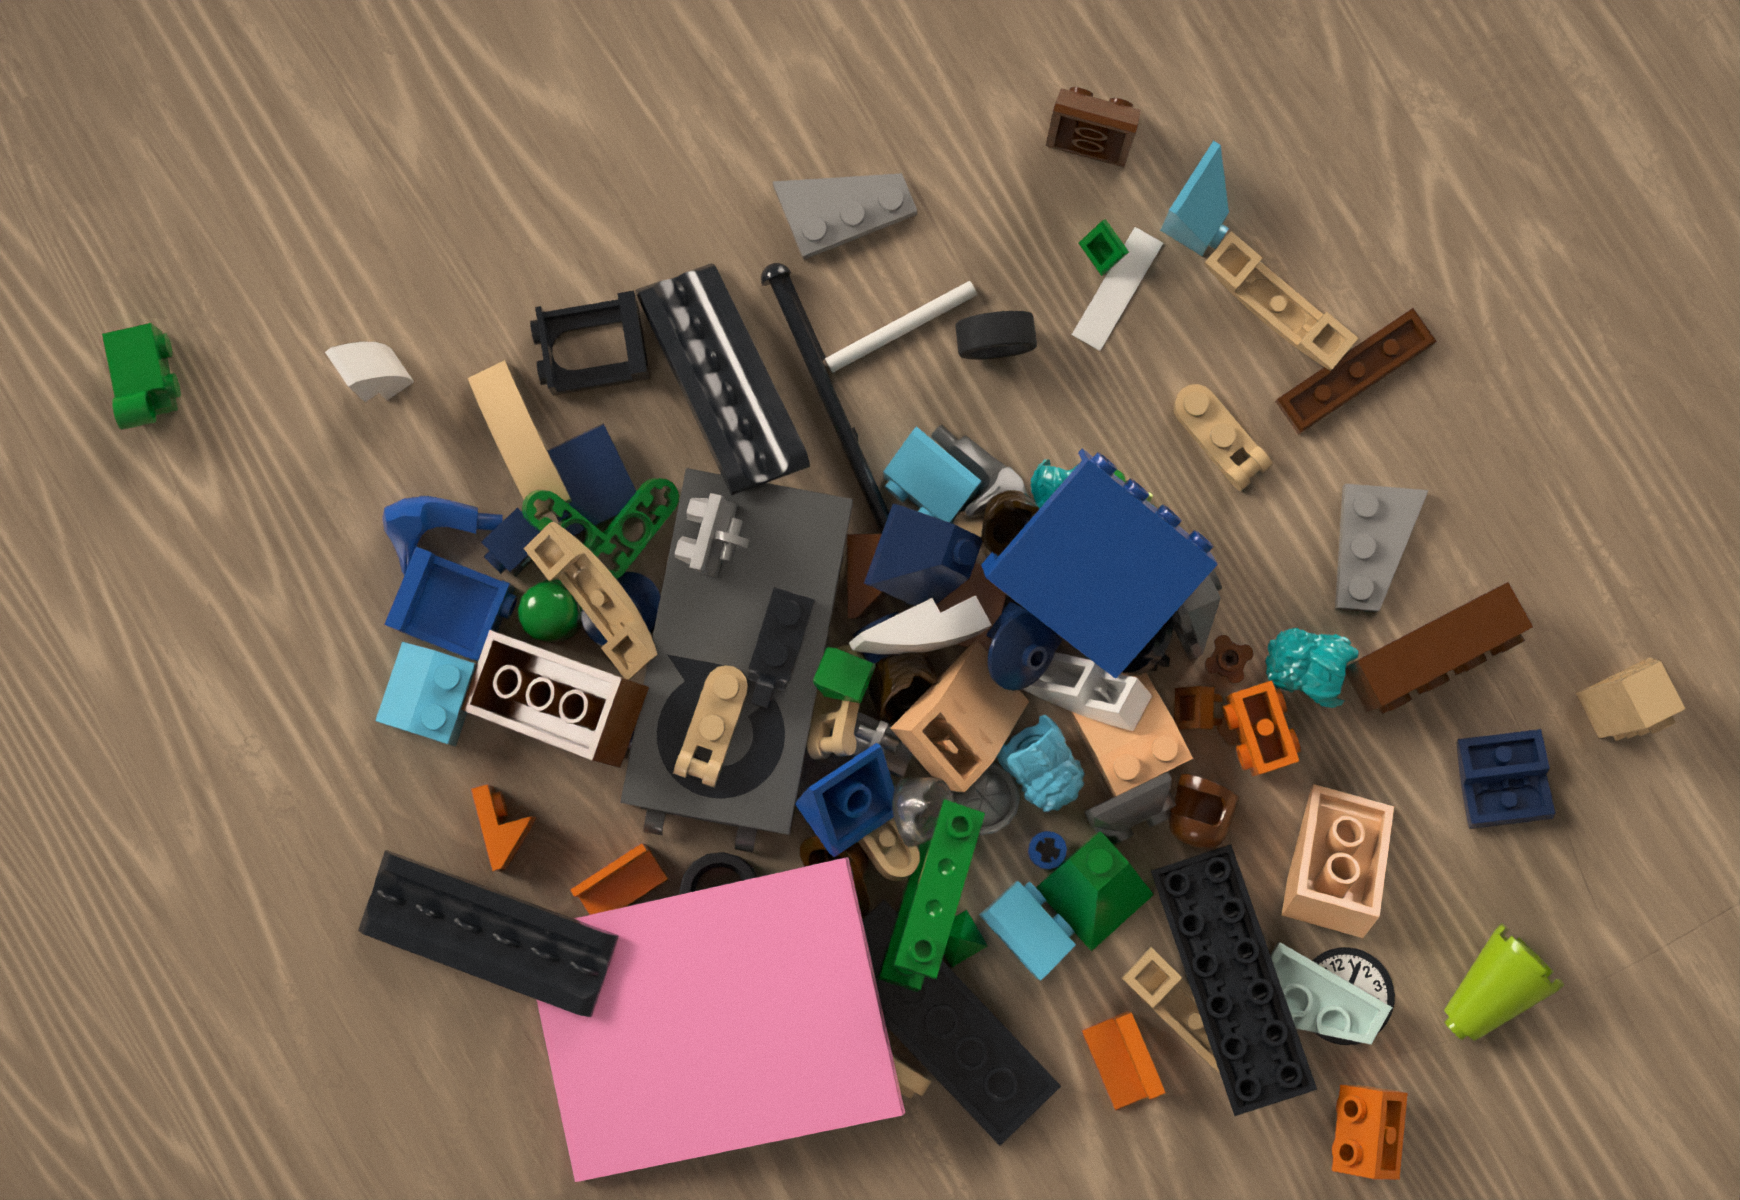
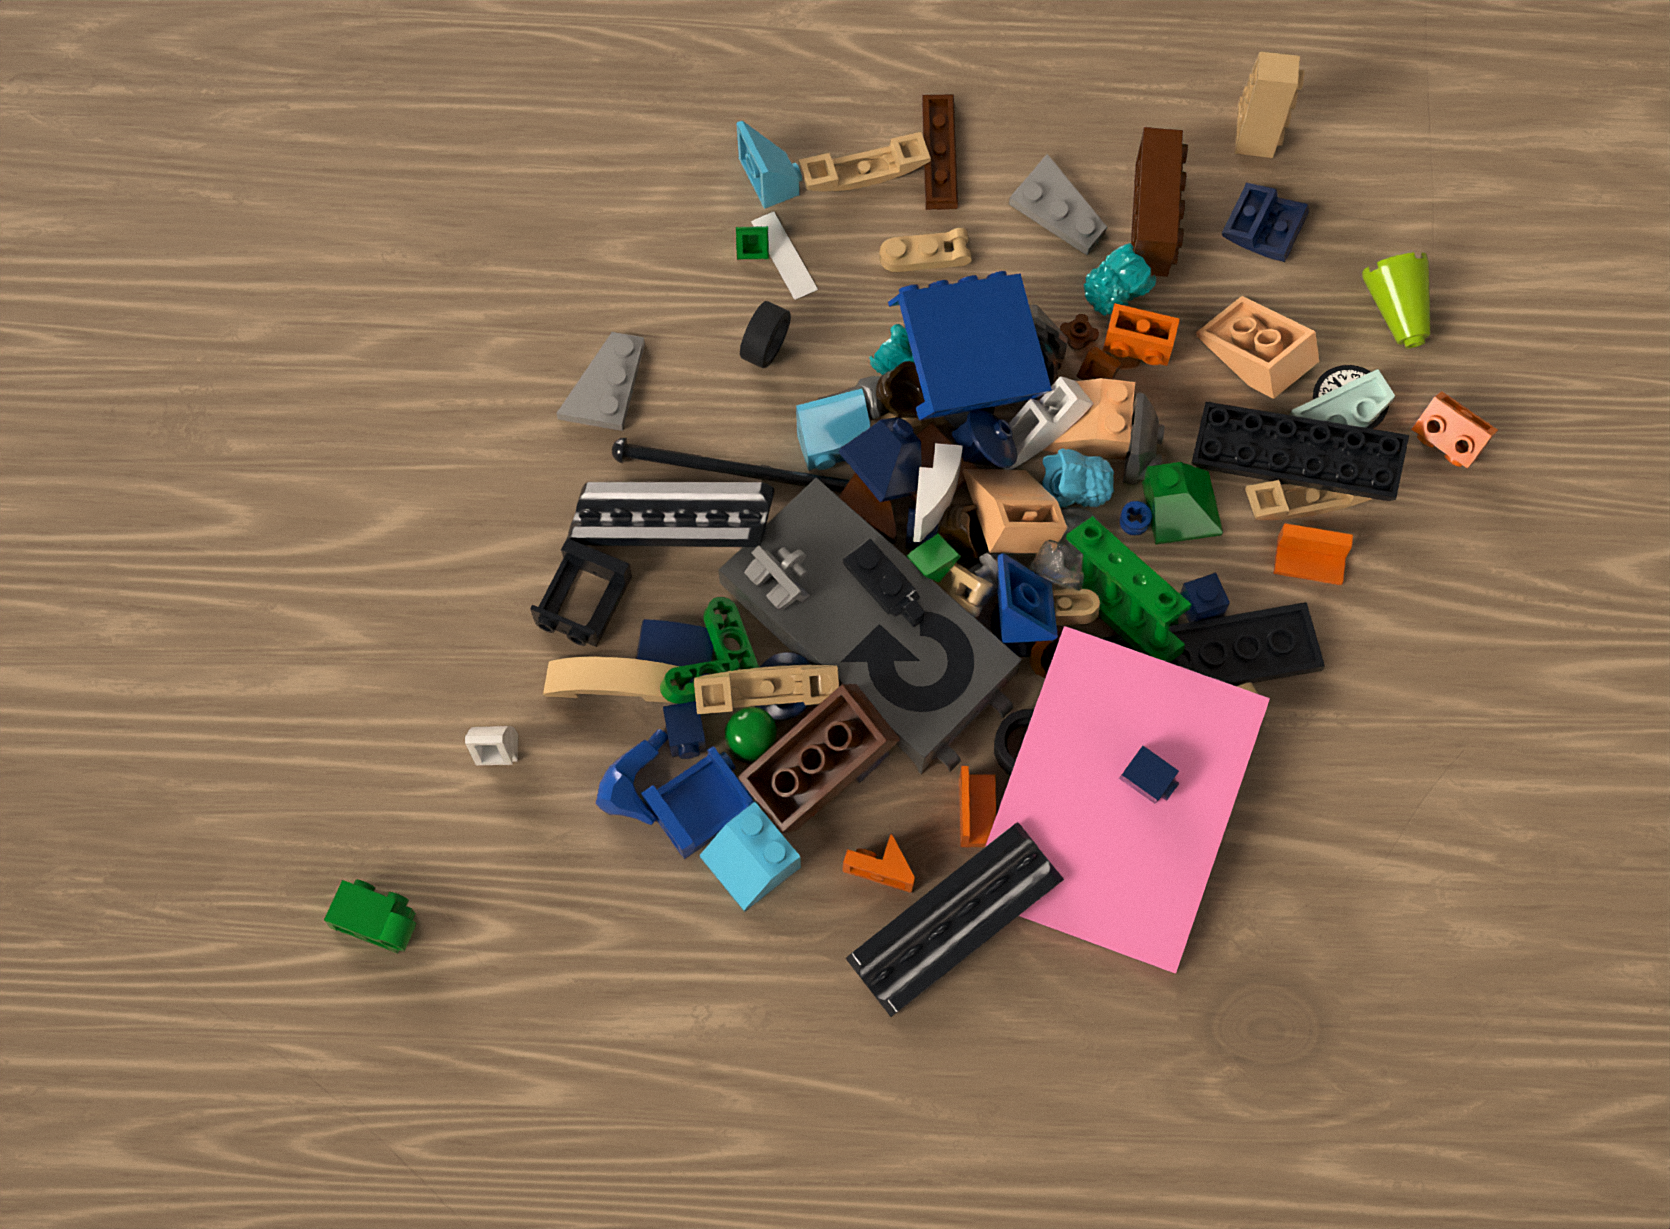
camera: 60 degrees left, 15 degrees down
(713, 724) = (911, 658): tan plate -> none
(740, 1041) = (1150, 775): none -> dark blue brick
(900, 326) = (714, 396): white bar -> none
(993, 978) = (1206, 598): none -> dark blue brick
(1029, 929) = (1186, 556): medium azure slope -> none
(1093, 126) = (671, 196): reddish brown slope -> none
(1202, 812) = (1178, 405): reddish brown helmet -> none

